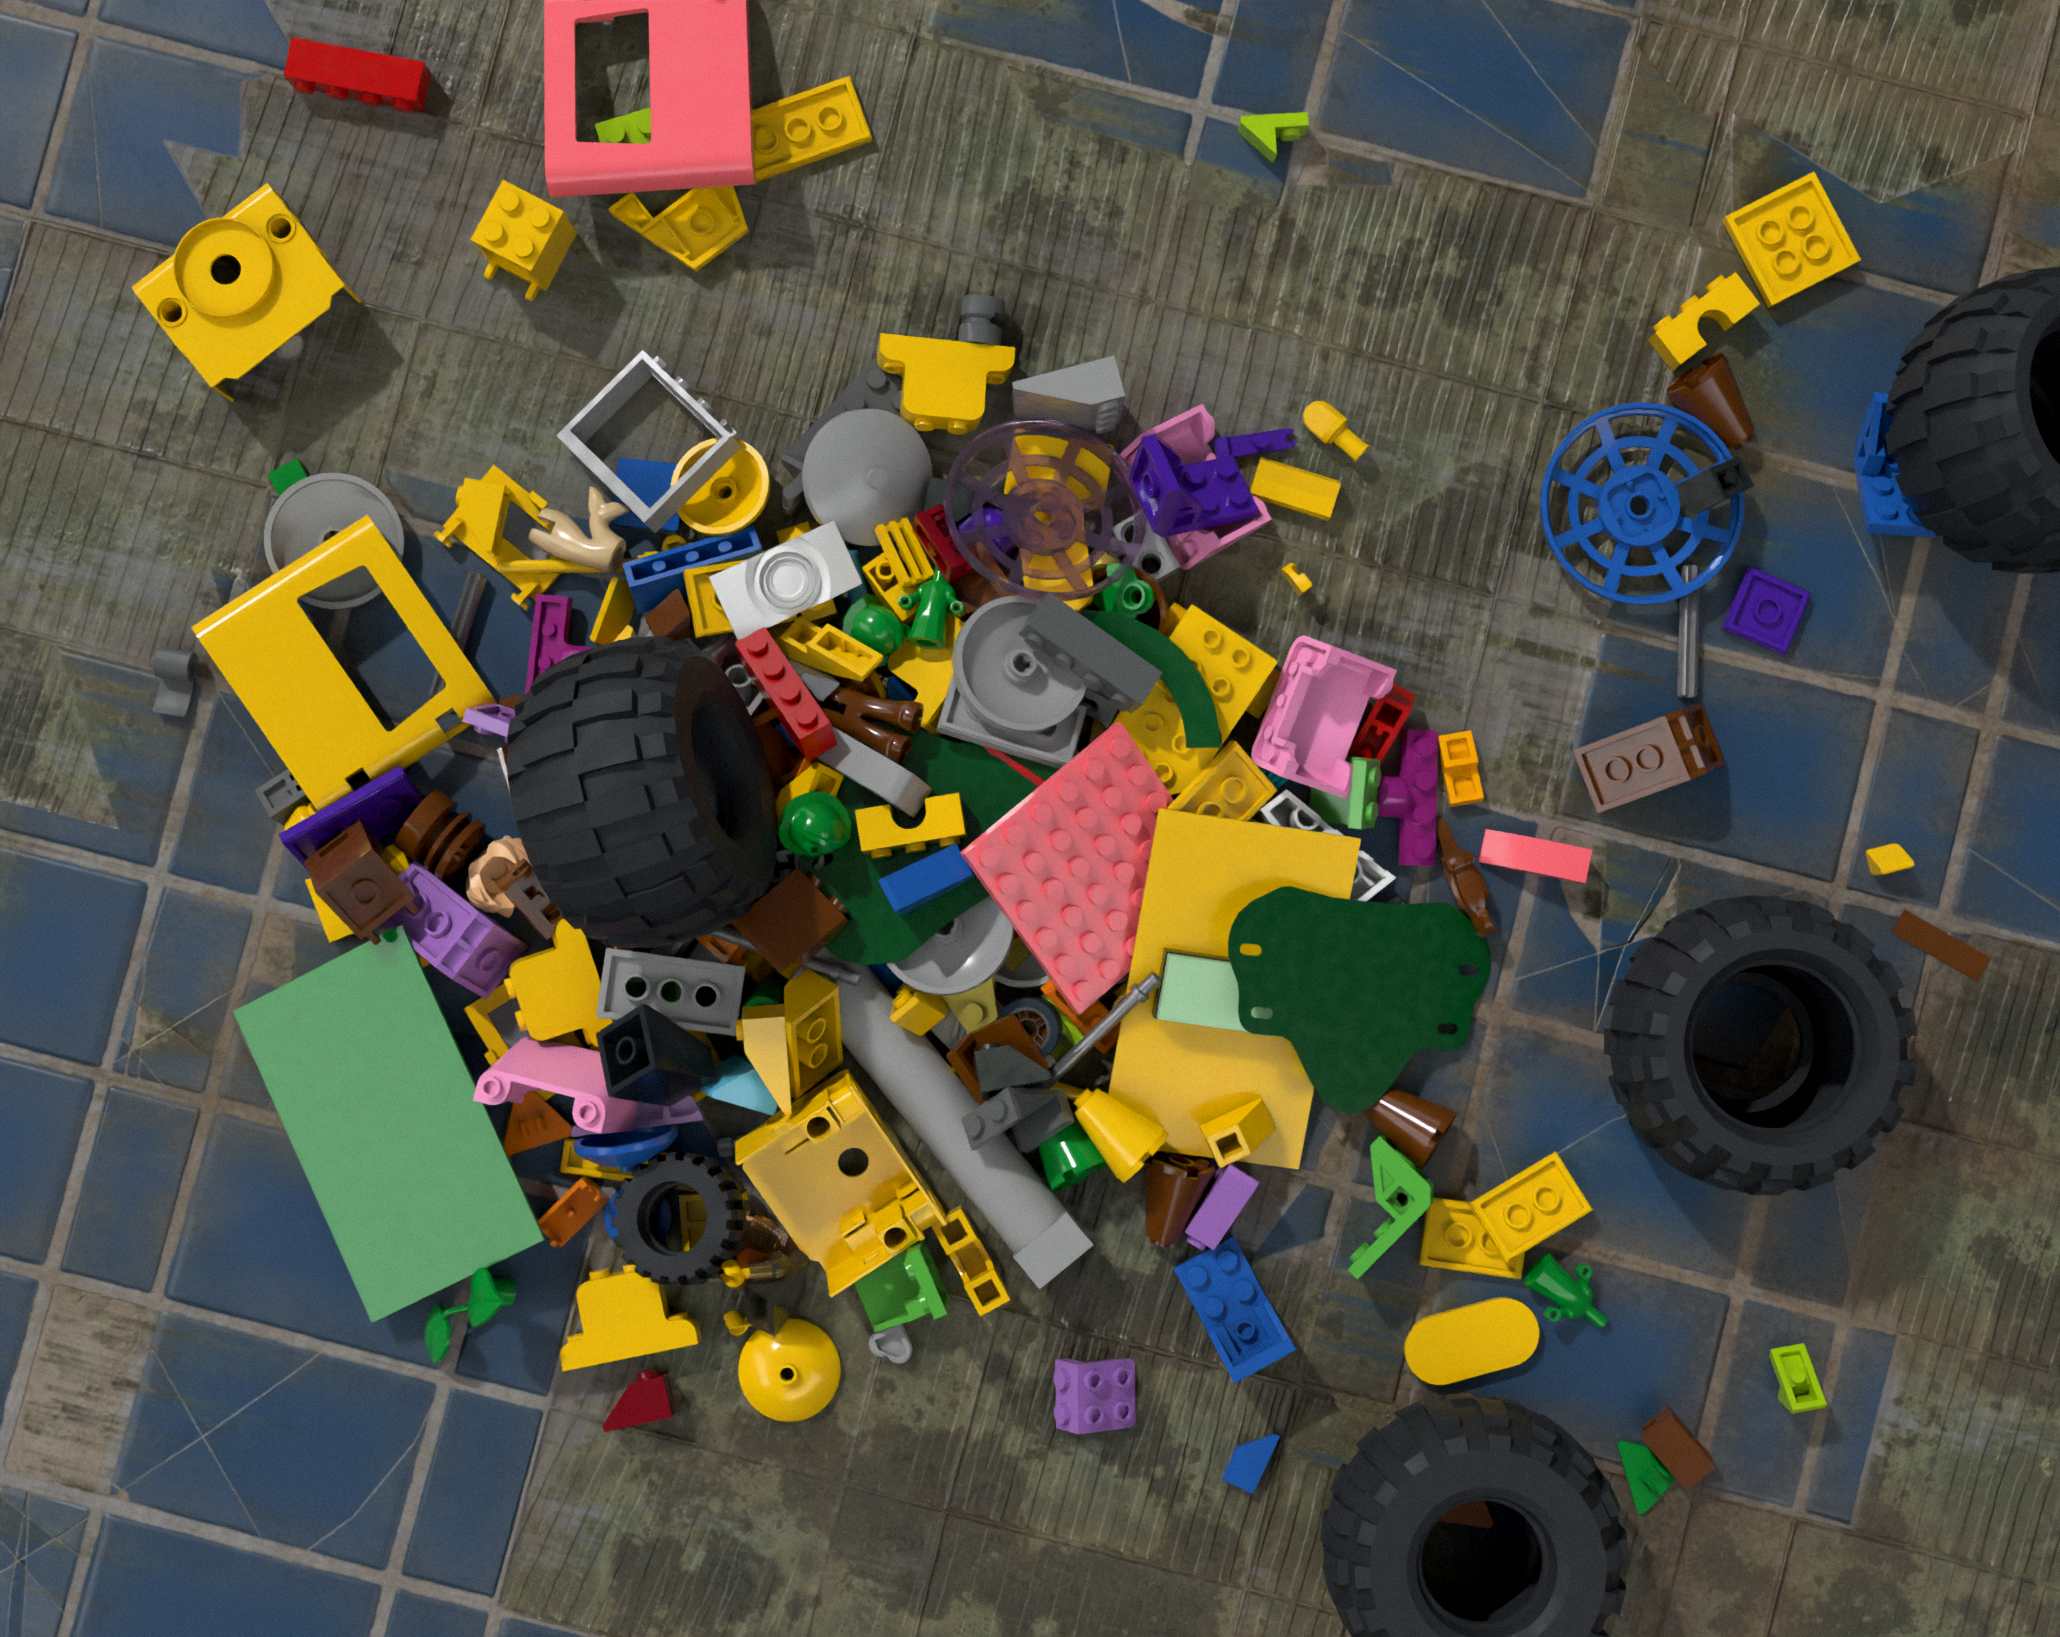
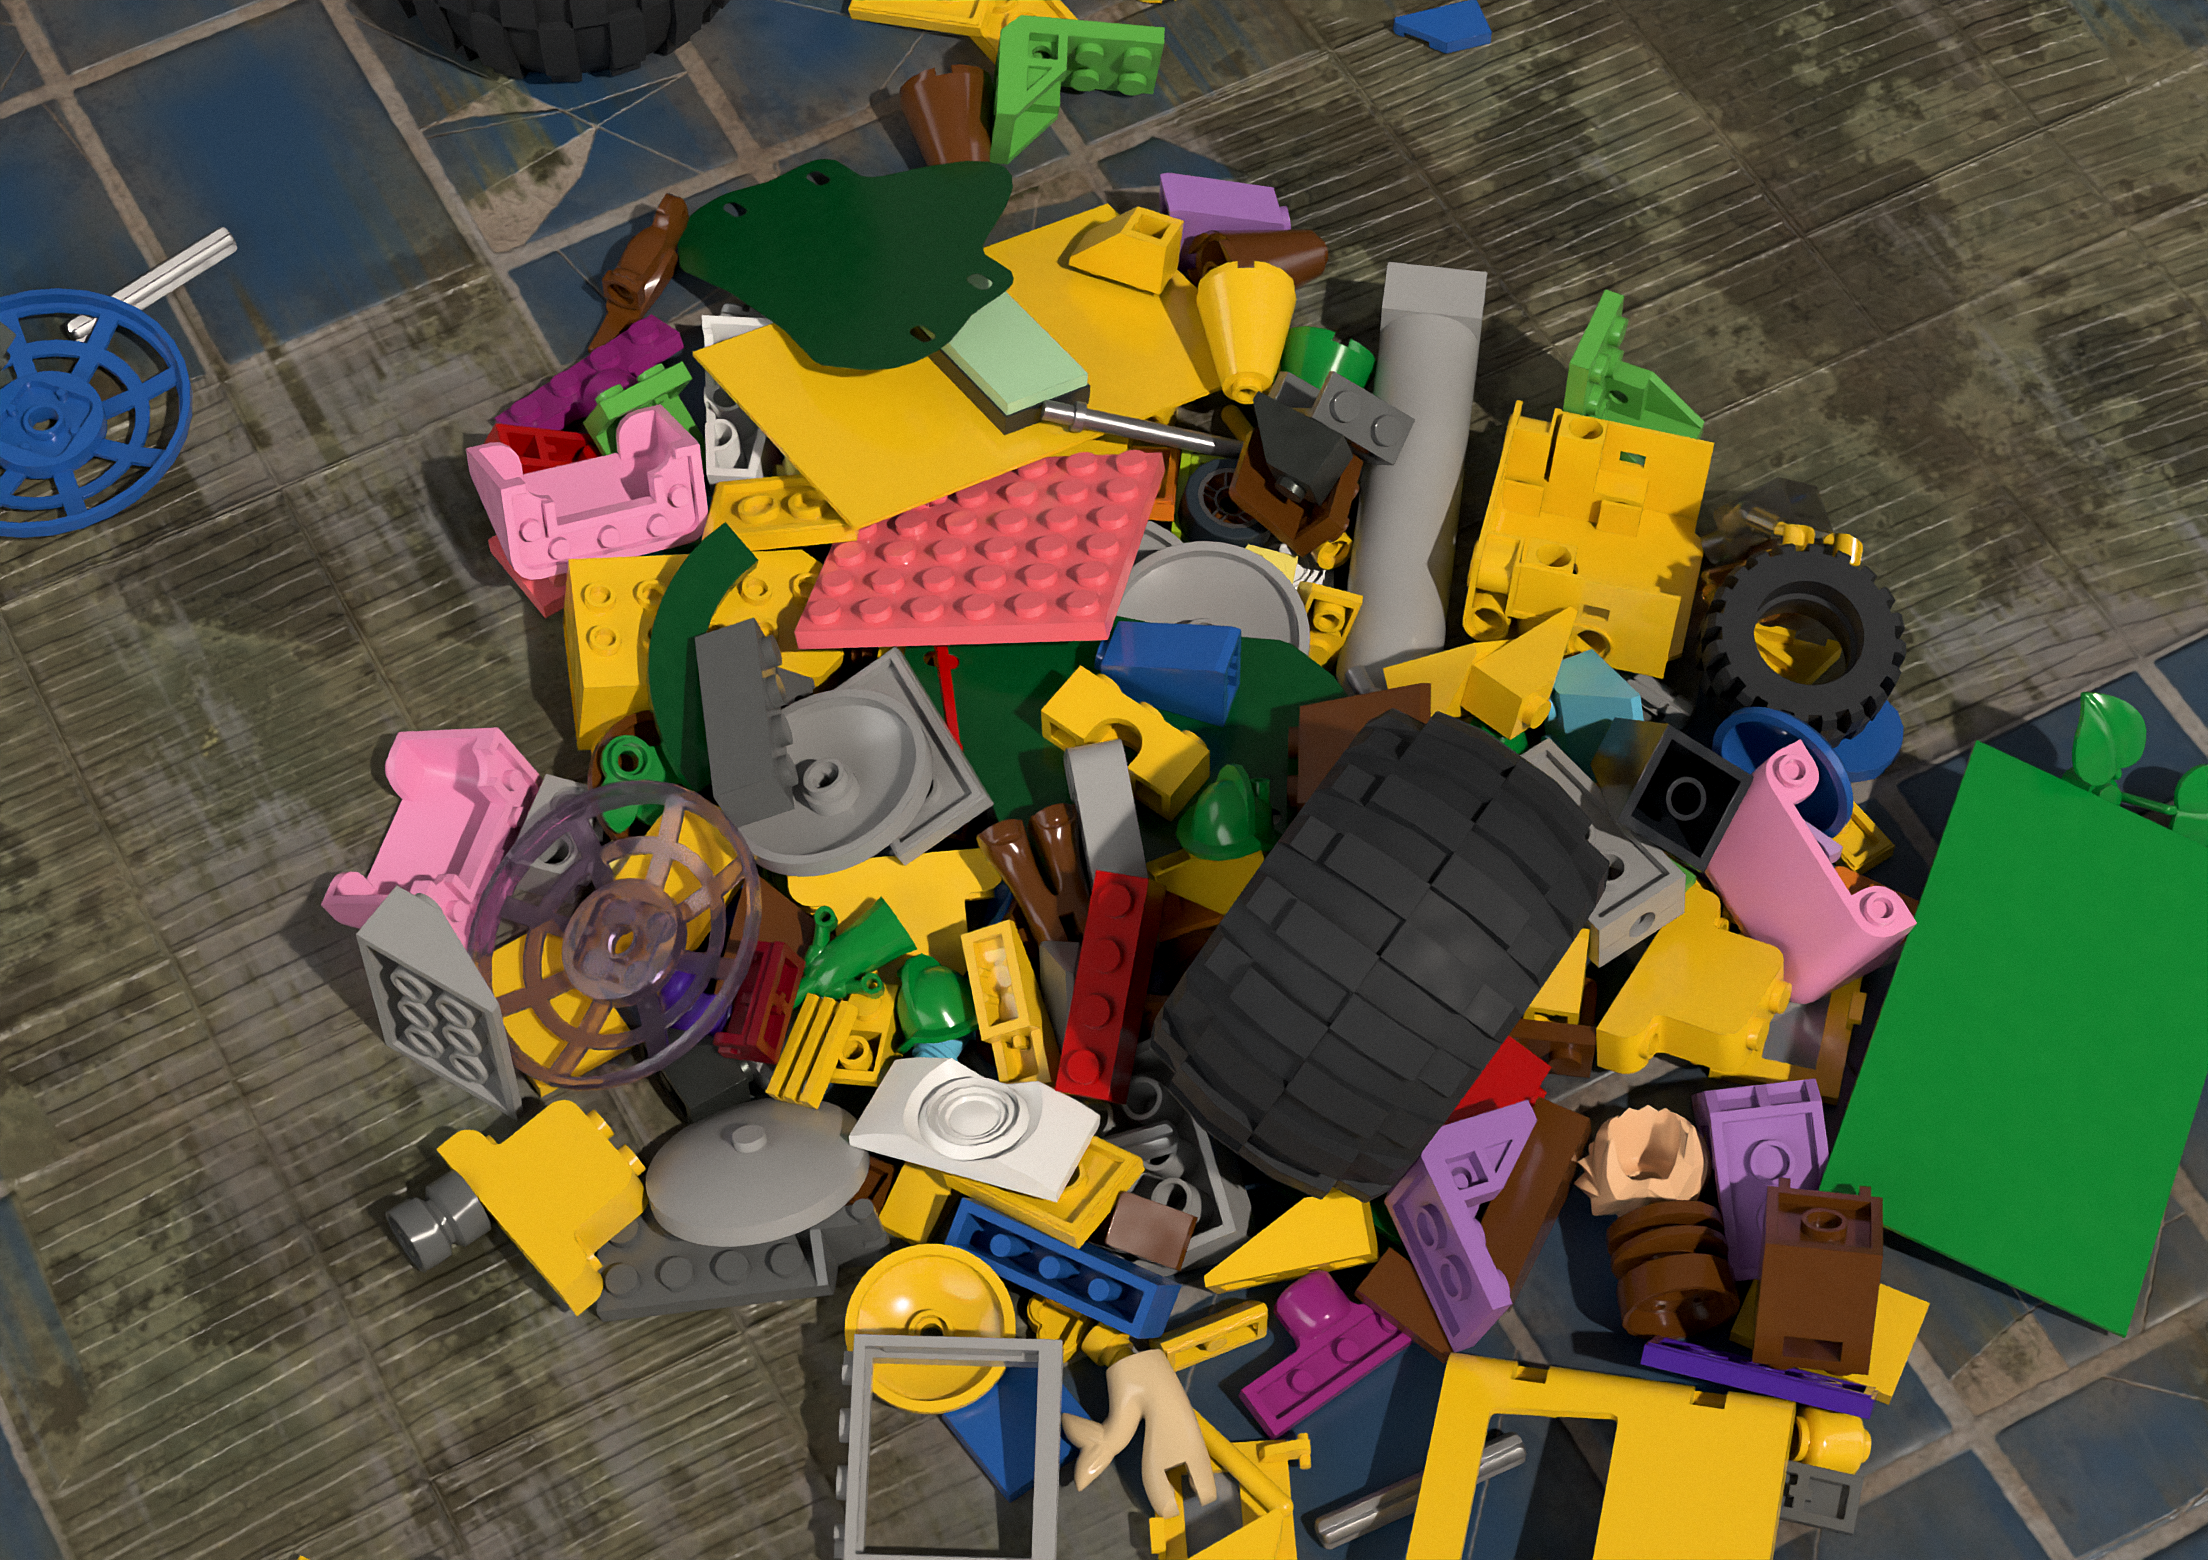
camera: 130 degrees left, 30 degrees down
(528, 896) = (1633, 1091): reddish brown hinge -> none
(572, 1211) = (1908, 801): orange hinge -> none
(624, 1320) = (1973, 649): yellow brick -> none
(644, 1401) = (2032, 565): dark red slope -> none
(804, 1350) = (1858, 487): yellow dish -> none
(892, 1343) = (1699, 394): light grey tile -> none
(972, 1261) = (1535, 372): yellow arch -> none
(1094, 1395) = (1547, 190): medium lavender bracket -> none
(1187, 496) = (447, 811): dark purple bracket -> none
(1234, 1309) = (1320, 119): blue bracket -> none
(1253, 443) = (318, 836): dark purple piece -> none
(1295, 488) = (336, 754): yellow piece -> none
(1298, 581) = (452, 667): yellow tile -> none
(1331, 427) = (226, 768): yellow arm -> none
(1460, 768) = (519, 372): light orange slope -> none
(1535, 856) = (547, 233): coral slope -> none
(1649, 757) = (341, 200): bracket -> none
(1766, 610) = (60, 241): dark purple tile -> none

